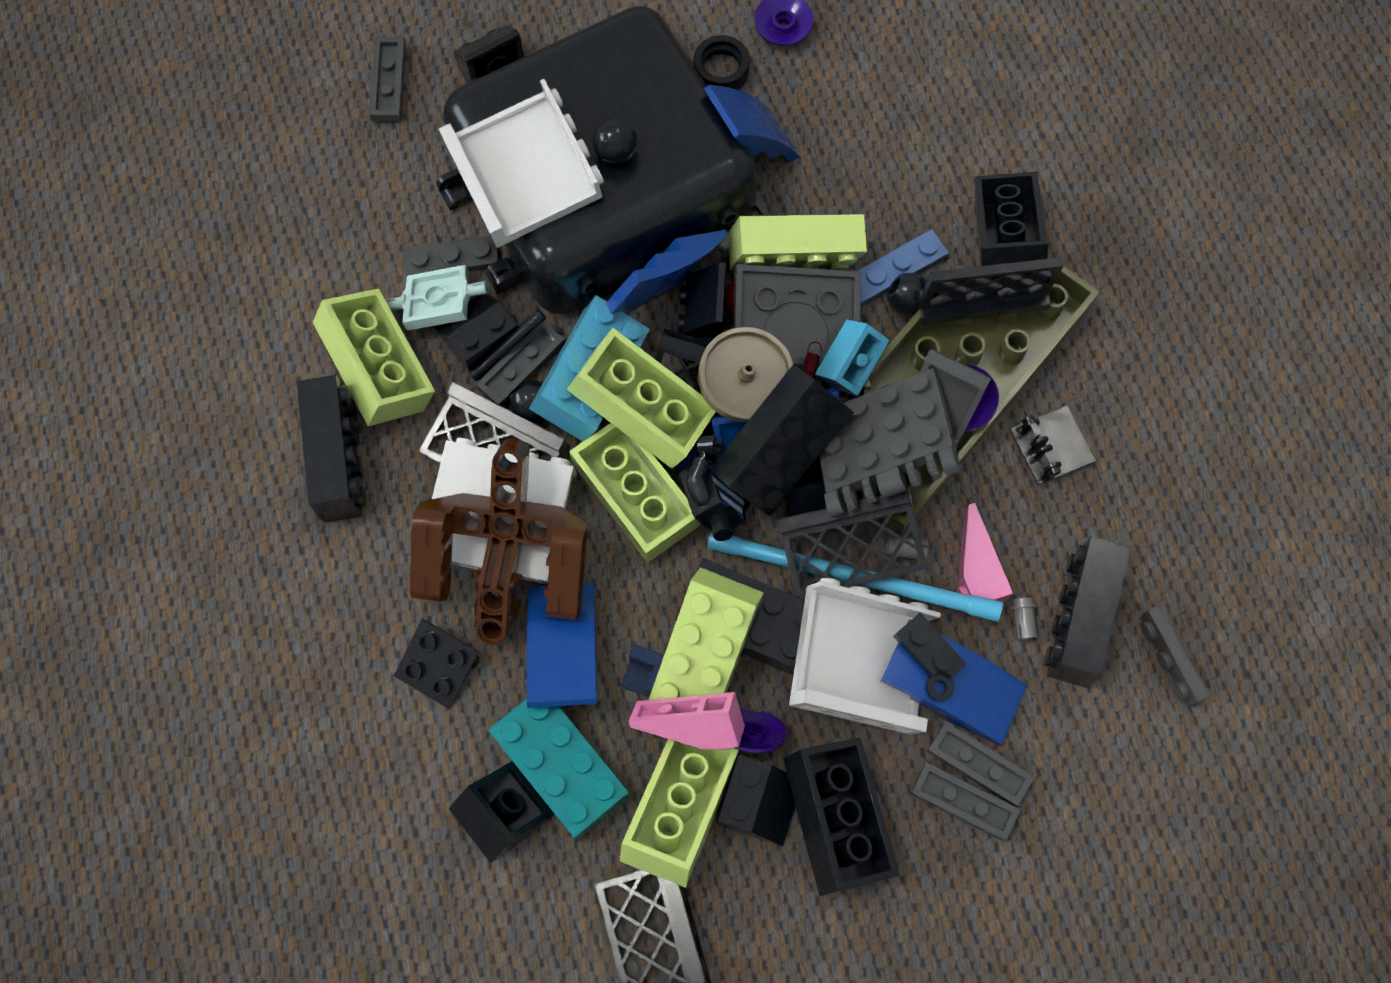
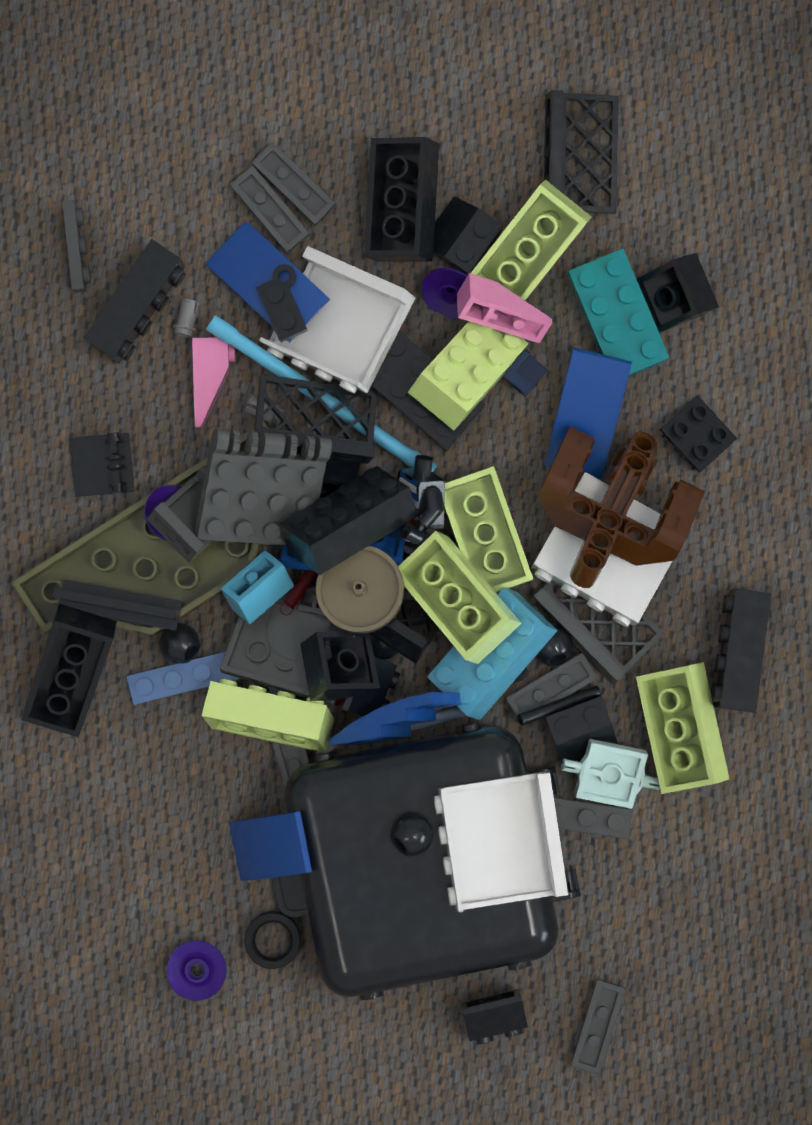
camera: 160 degrees left, 15 degrees up
(741, 294) = (339, 665): none -> black slope

